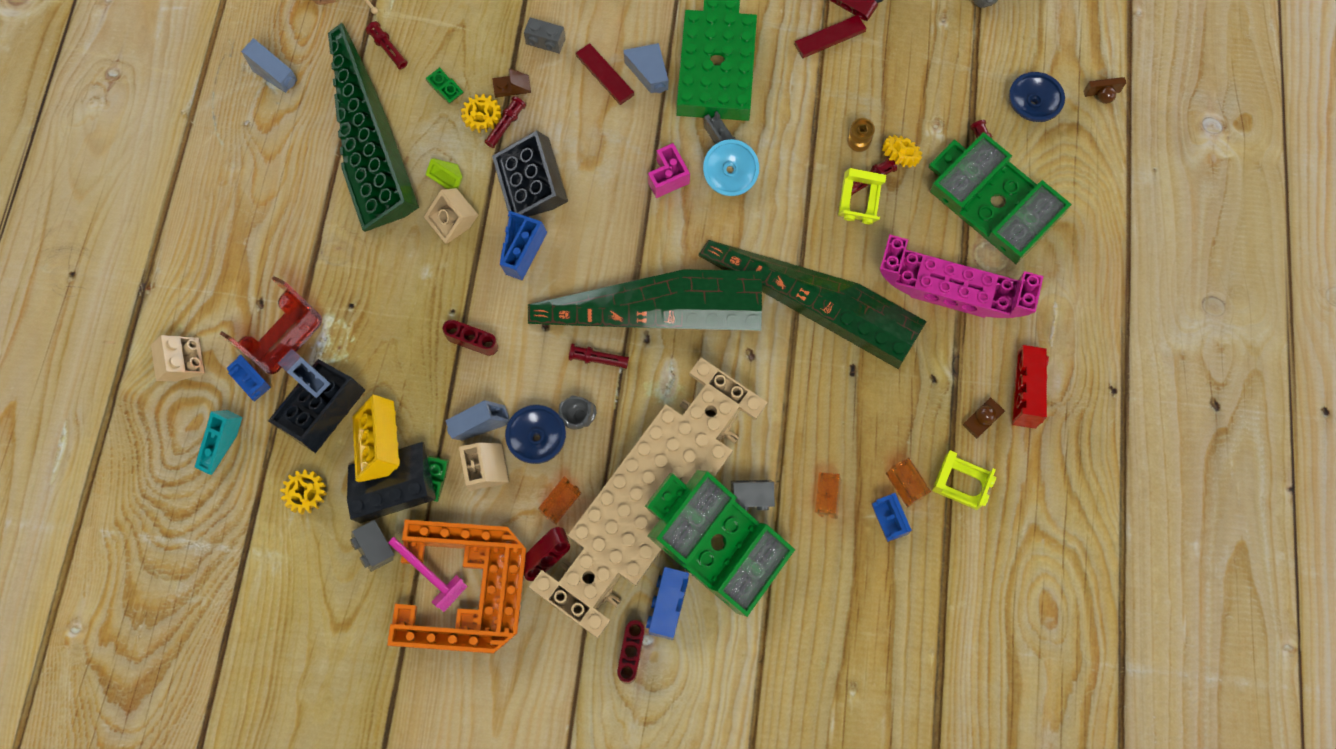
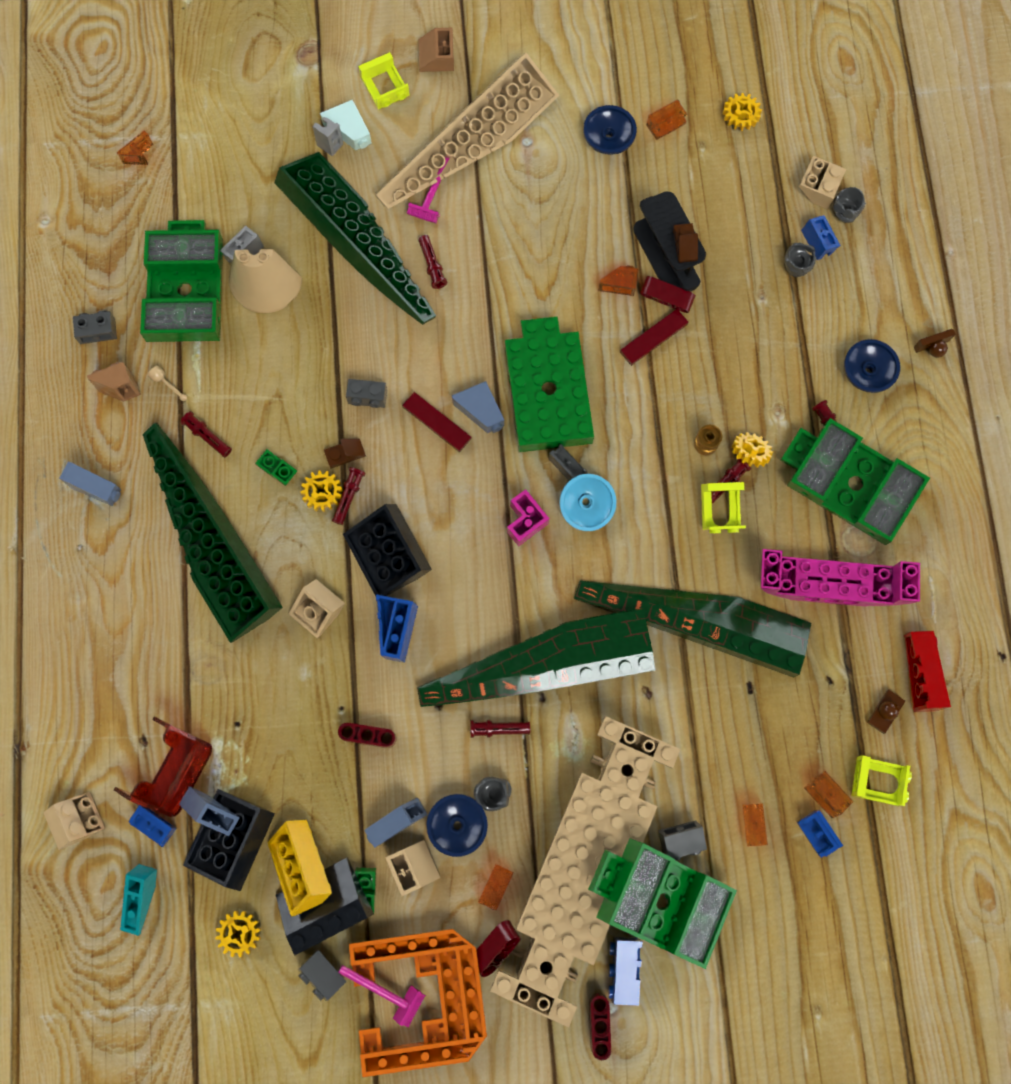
camera: 15 degrees left, 5 degrees up
(444, 173) = (300, 563): lime slope -> none

